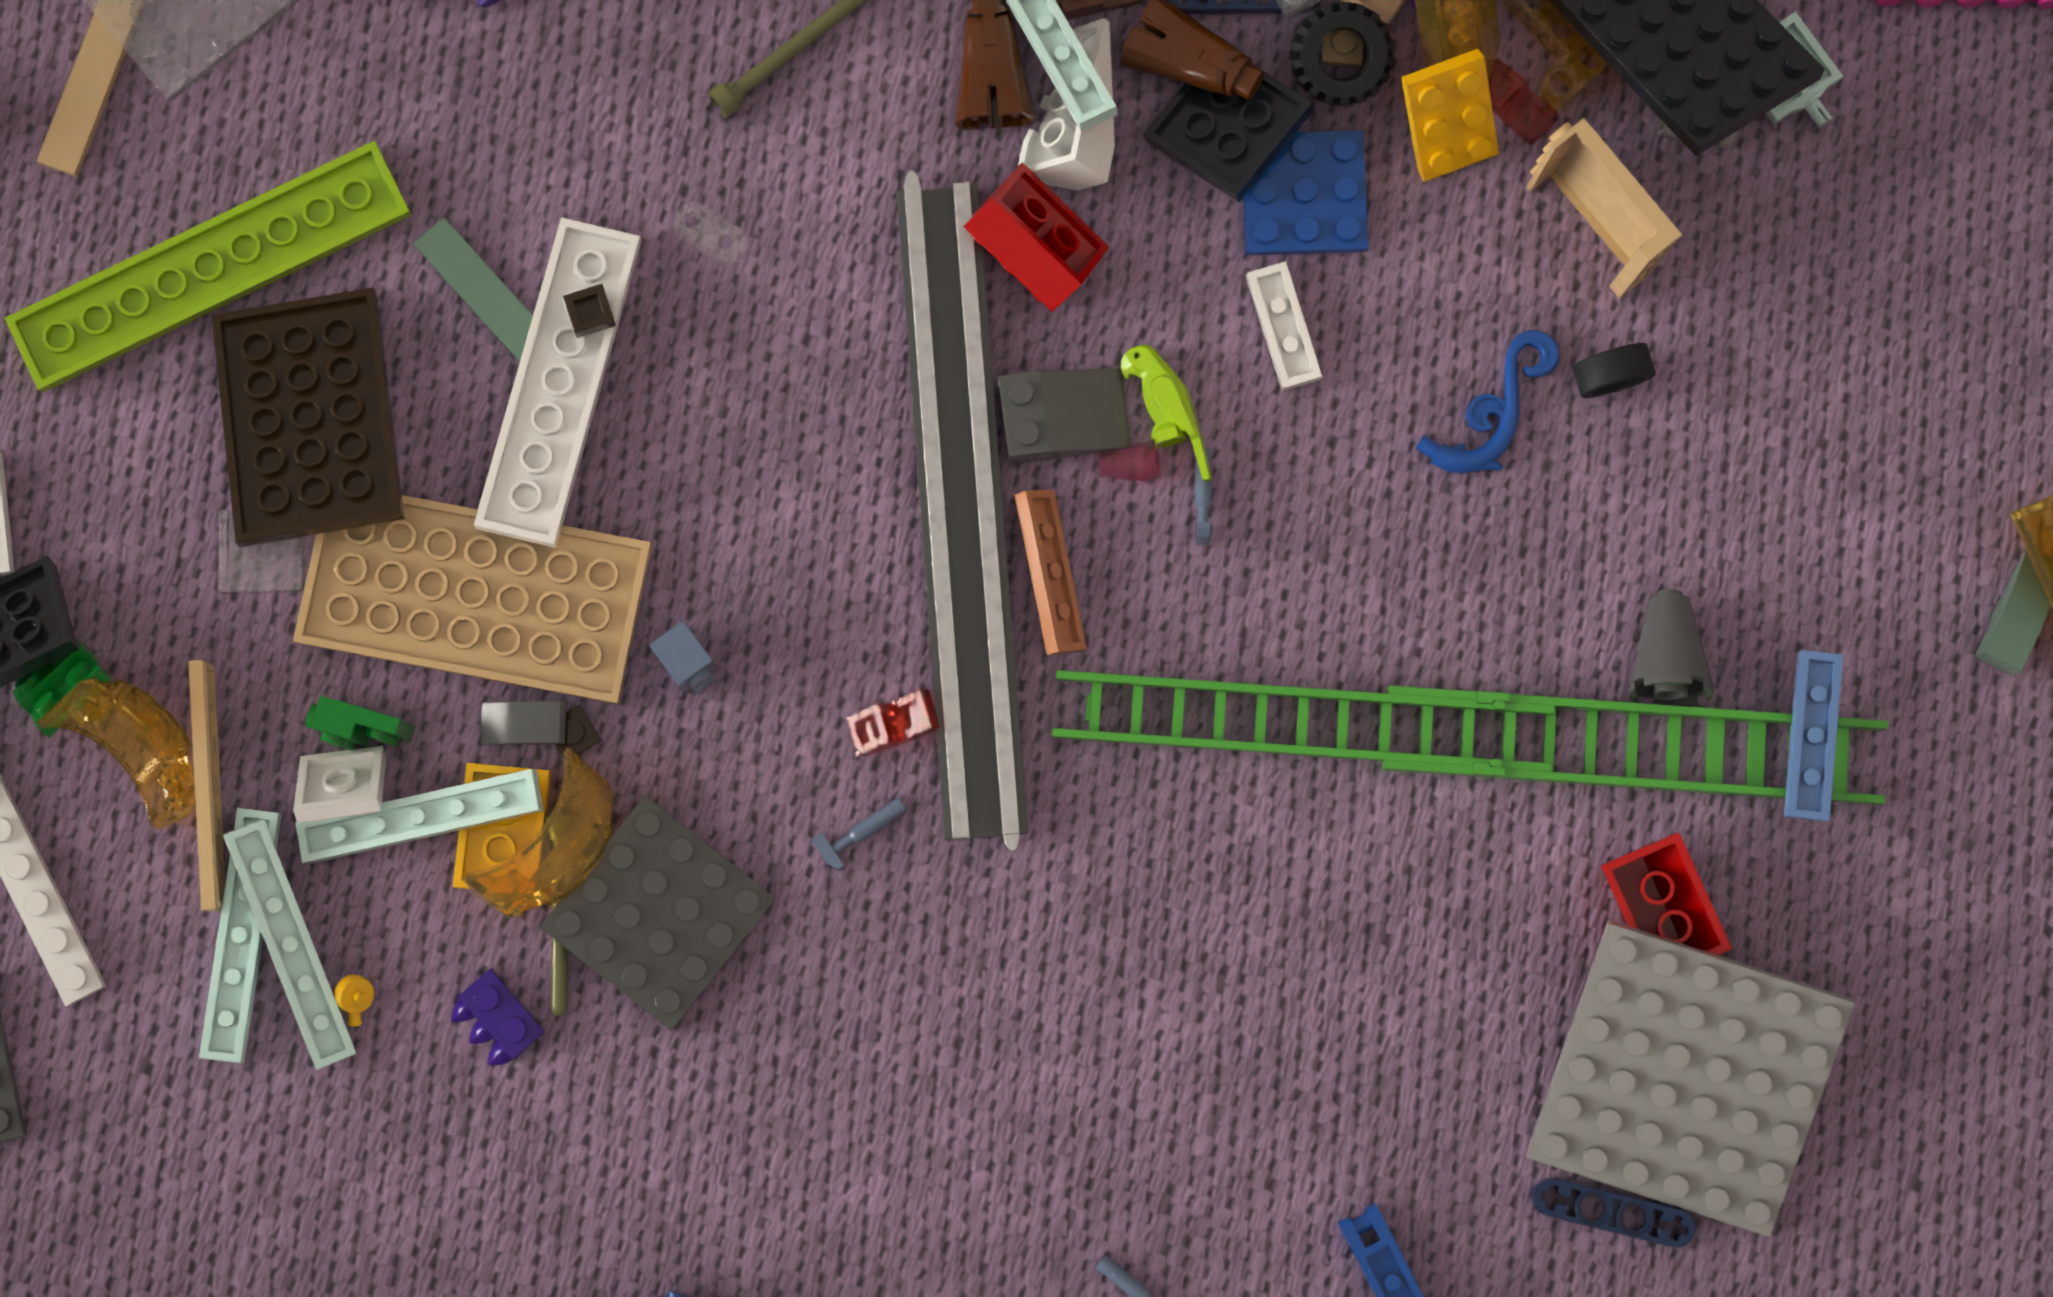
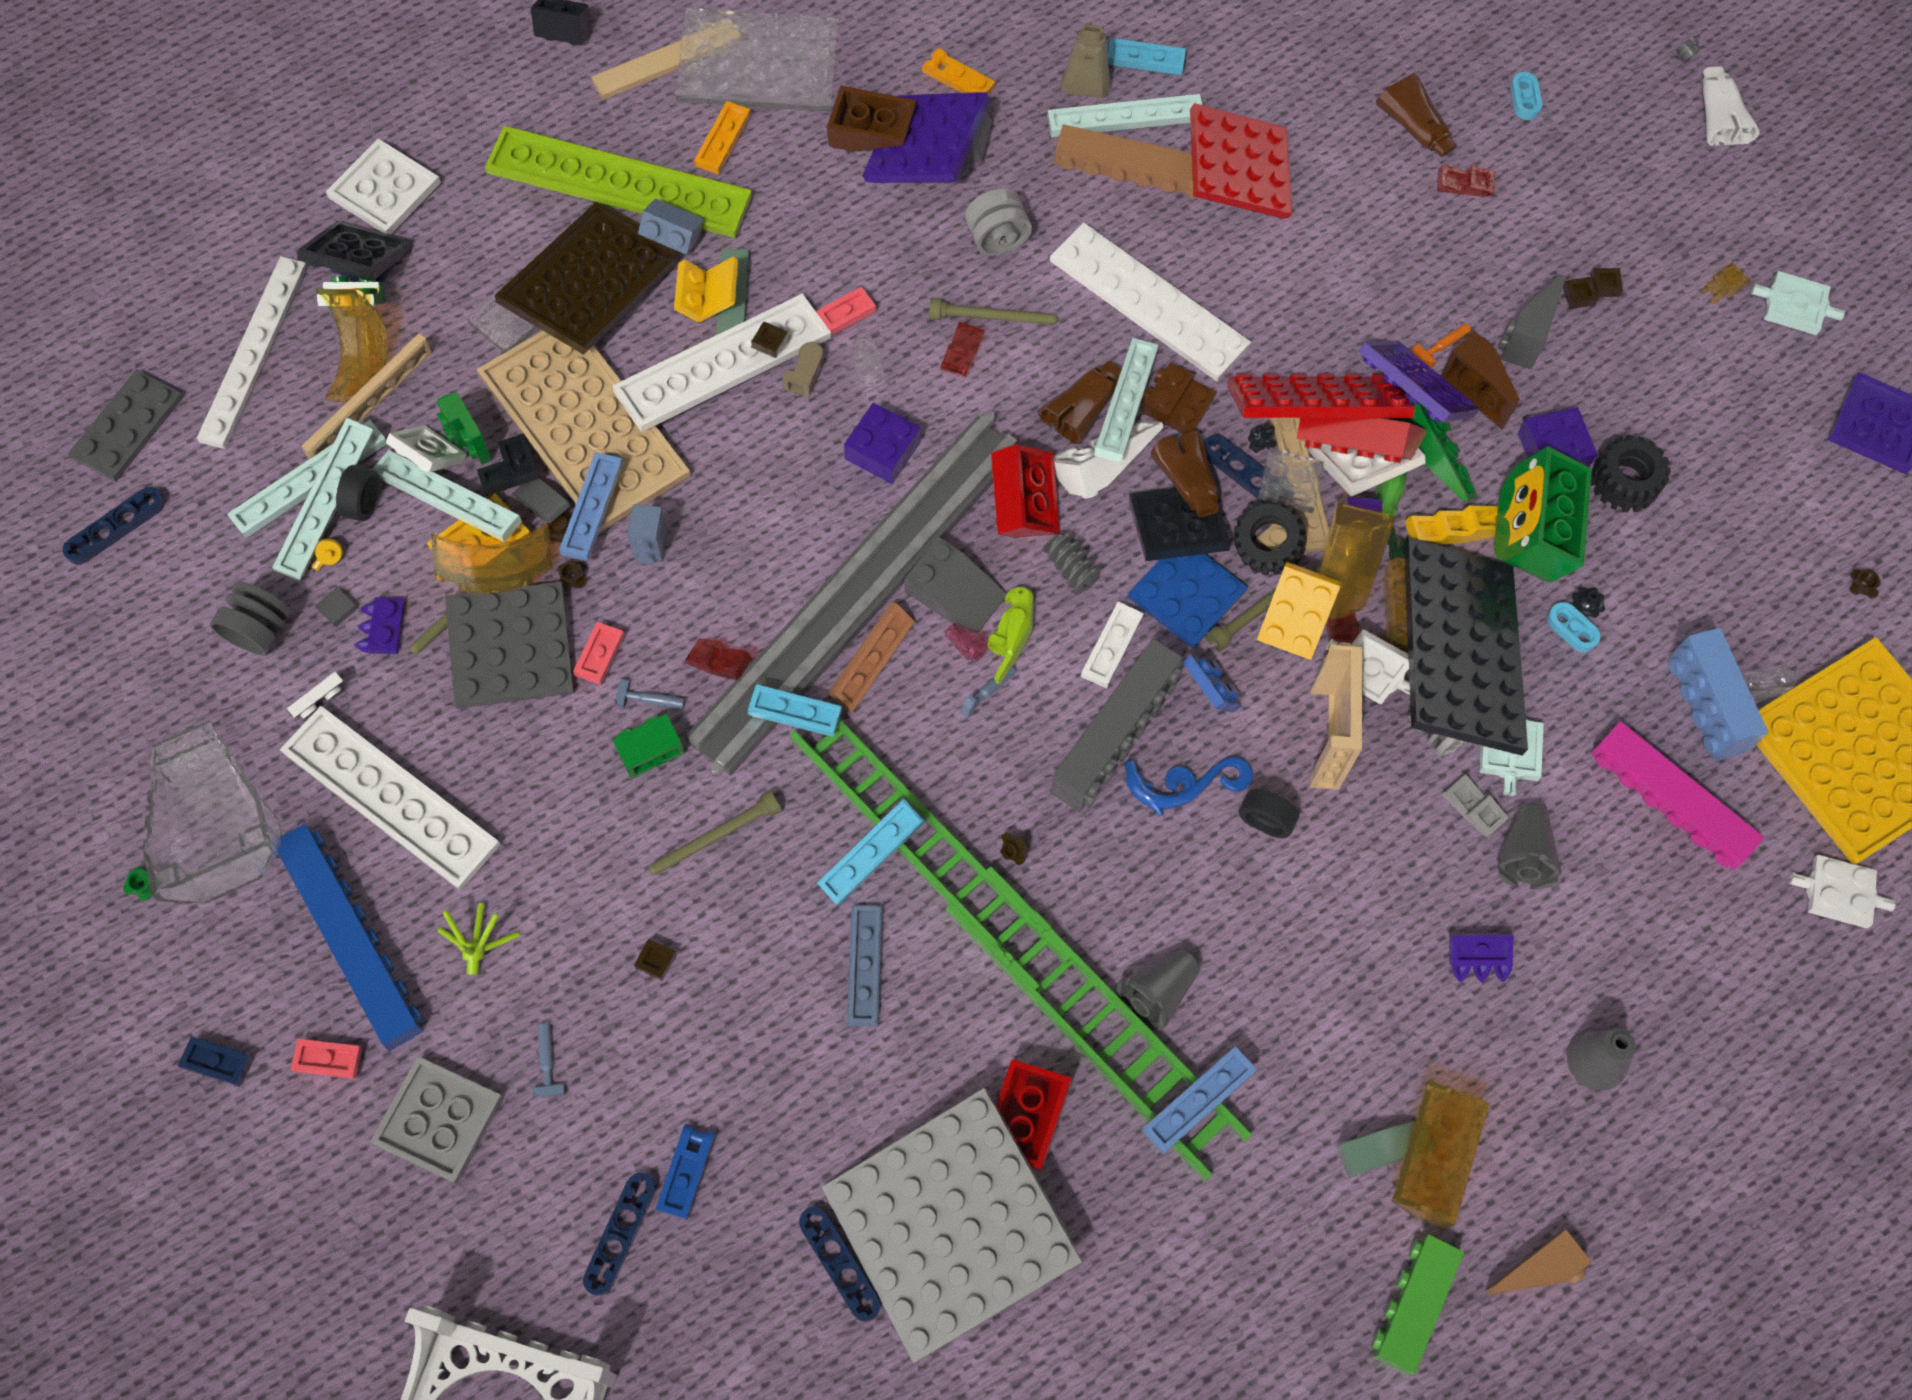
camera: 40 degrees right, 15 degrees down
(77, 1182) = (112, 522): none -> dark blue beam
(271, 101) = (722, 137): none -> light orange plate
(320, 903) = (357, 492): none -> black tyre
(333, 270) = (670, 226): none -> sand blue brick
(359, 1145) = (250, 618): none -> dark grey wheel
(426, 1044) = (336, 607): none -> dark grey tile
(452, 310) = (703, 292): none -> yellow bracket
(460, 716) = (514, 470): none -> black plate
(511, 1173) = (327, 689): none -> white plate
(592, 683) = (591, 506): none -> medium blue plate
(628, 192) = (847, 310): none -> coral plate
(629, 774) = (575, 568): none -> dark brown plate
(652, 293) = (806, 371): none -> dark tan leg
(703, 1187) = (390, 798): none -> white plate
(761, 833) = (599, 653): none -> coral plate
(801, 123) = (962, 350): none -> clear red slope
(826, 317) = (882, 443): none -> dark purple brick
(918, 884) = (648, 745): none -> green brick
(955, 1254) = (474, 949): none -> lime plant
(1038, 708) = (794, 710): none -> medium azure plate
(1098, 834) = (765, 806): none -> olive piece
(1146, 1094) = (655, 959): none -> dark brown plate
(1158, 269) = (1072, 562): none -> dark grey piece
(1257, 783) = (871, 852): none -> medium azure tile
(1356, 902) = (864, 966): none -> sand blue tile
(1379, 415) = (1116, 726): none -> dark grey brick
(1386, 209) = (1223, 635): none -> olive piece
(1391, 642) = (1014, 847): none -> dark brown plate
(1432, 279) = (1209, 678): none -> blue plate
(1580, 95) = (1381, 666): none -> white plate
(1801, 167) = (1474, 806): none -> light grey slope
(1899, 166) = (1530, 850): none -> dark grey cone
(1941, 325) = (1482, 953): none -> dark purple plate

